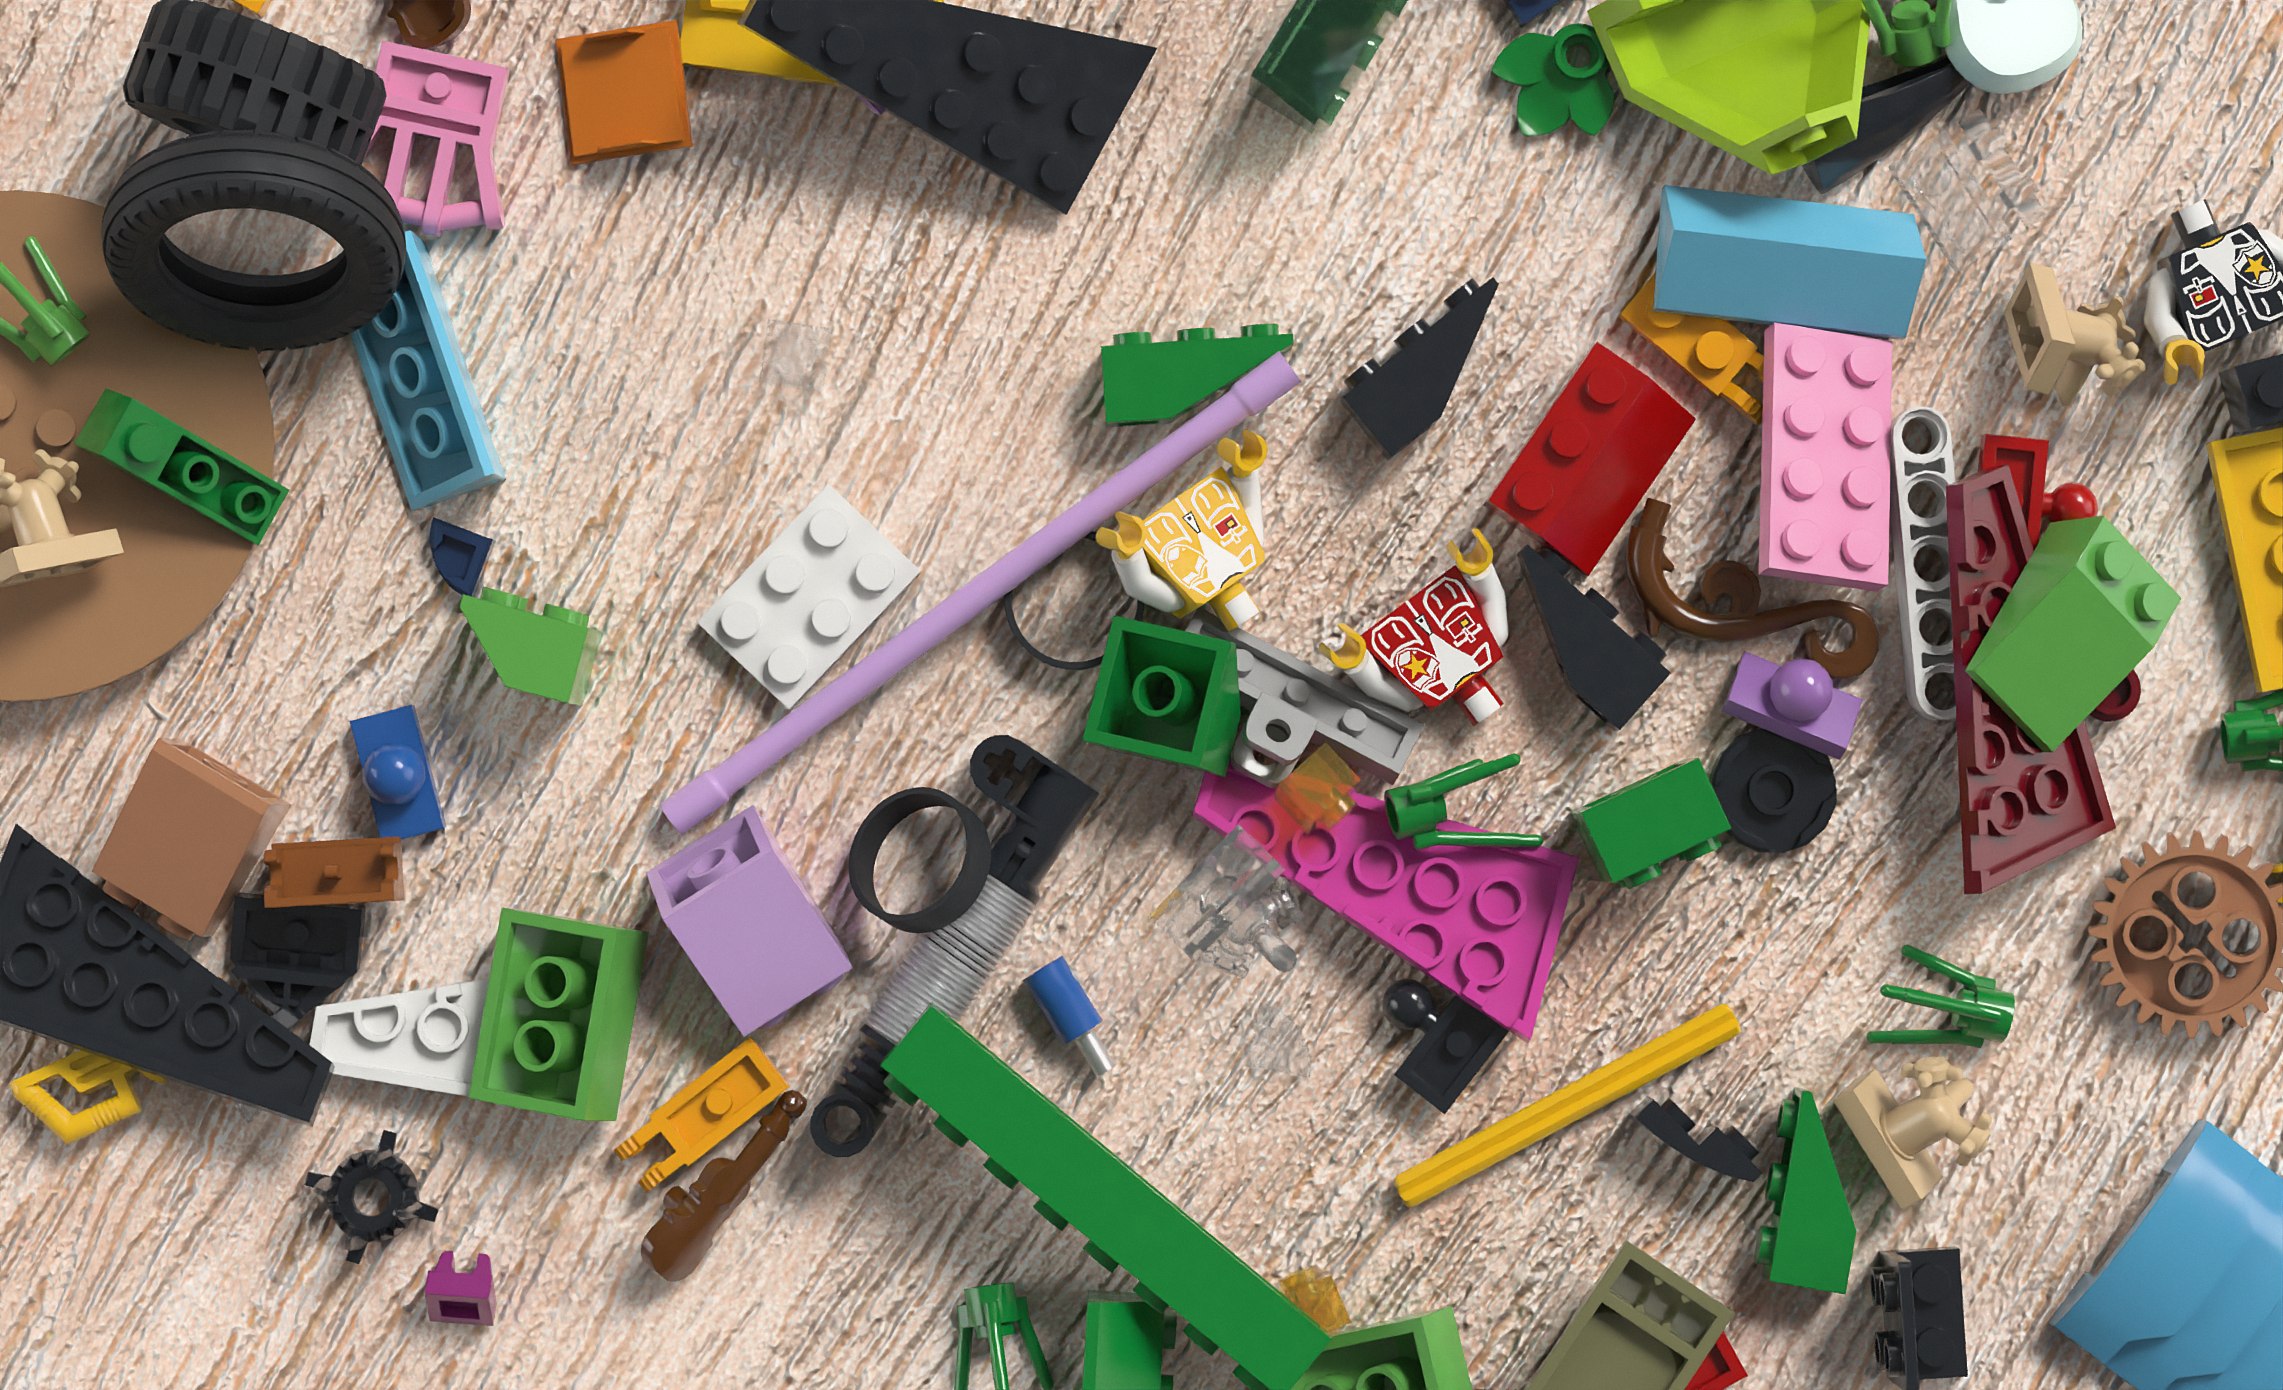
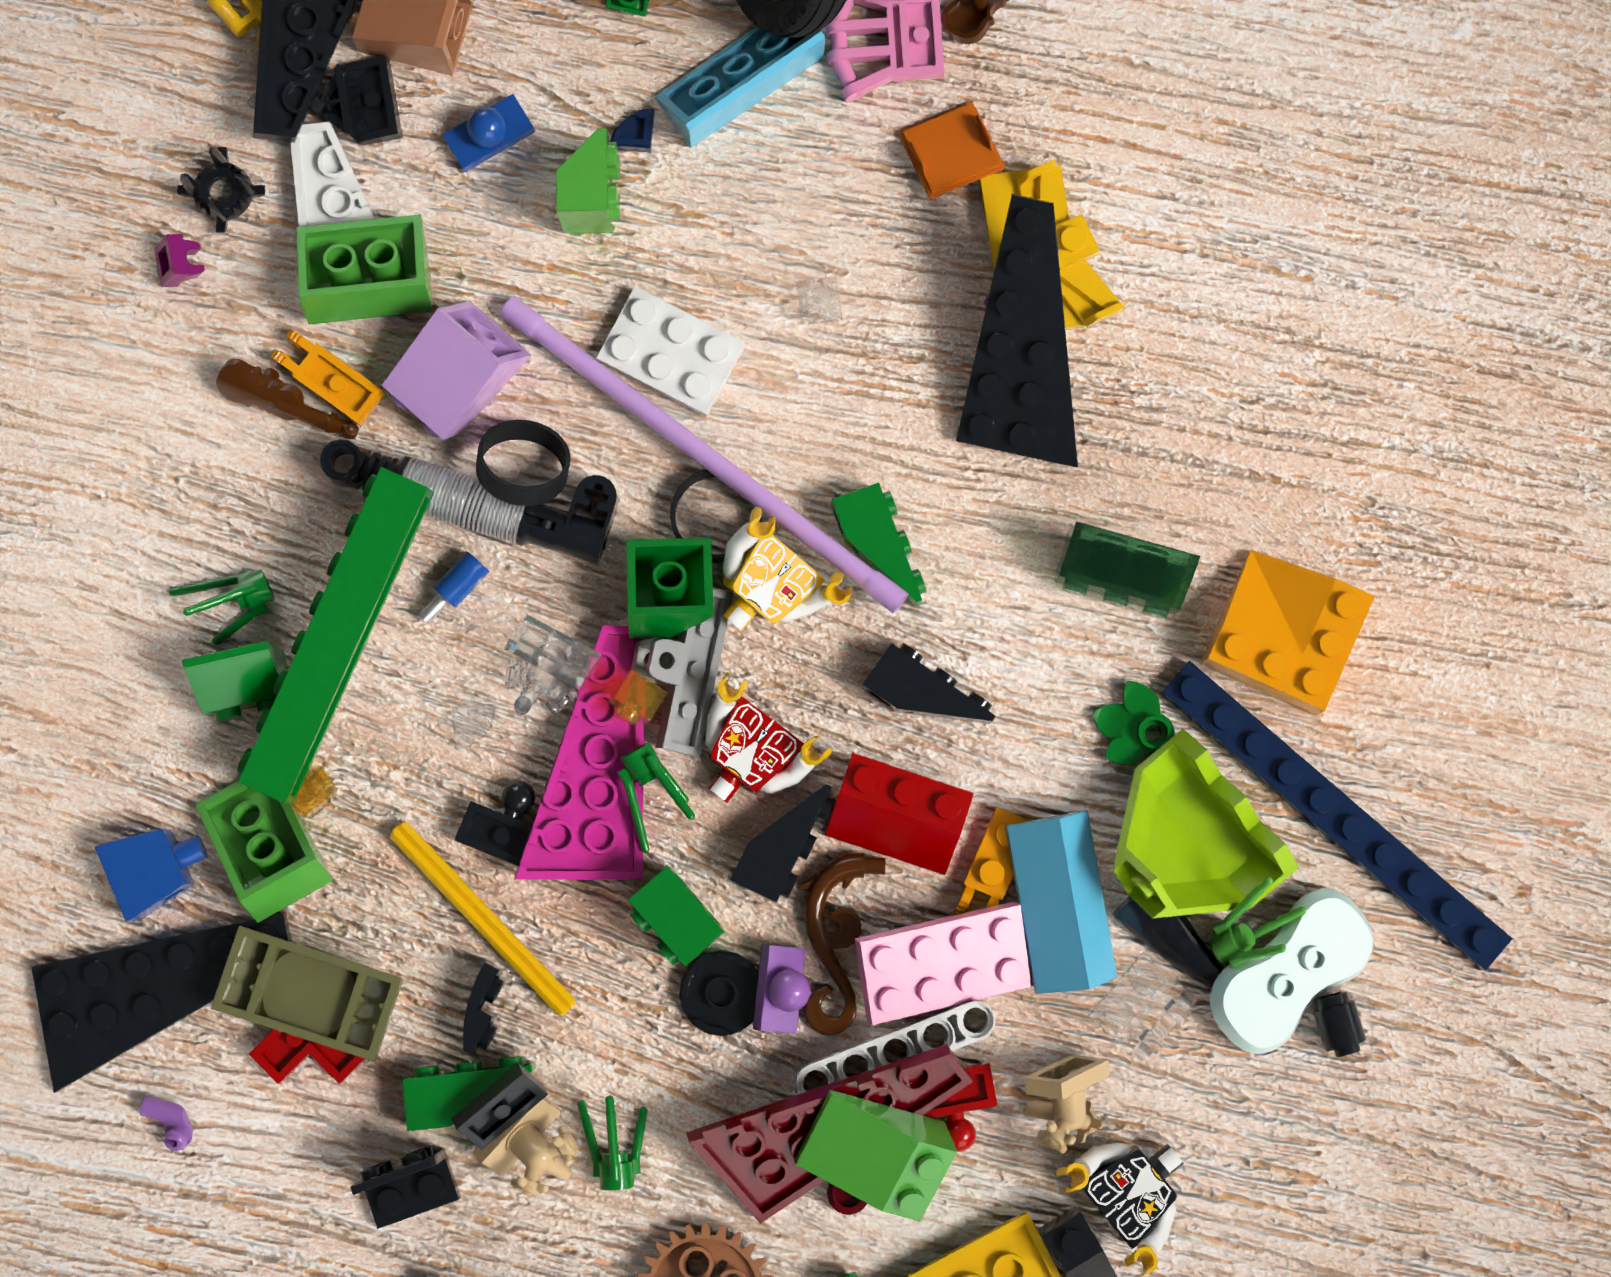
camera: 70 degrees right, 5 degrees down
(334, 872) = (414, 107): dark orange hinge -> none
(1850, 1150) = (499, 1106): none -> black plate

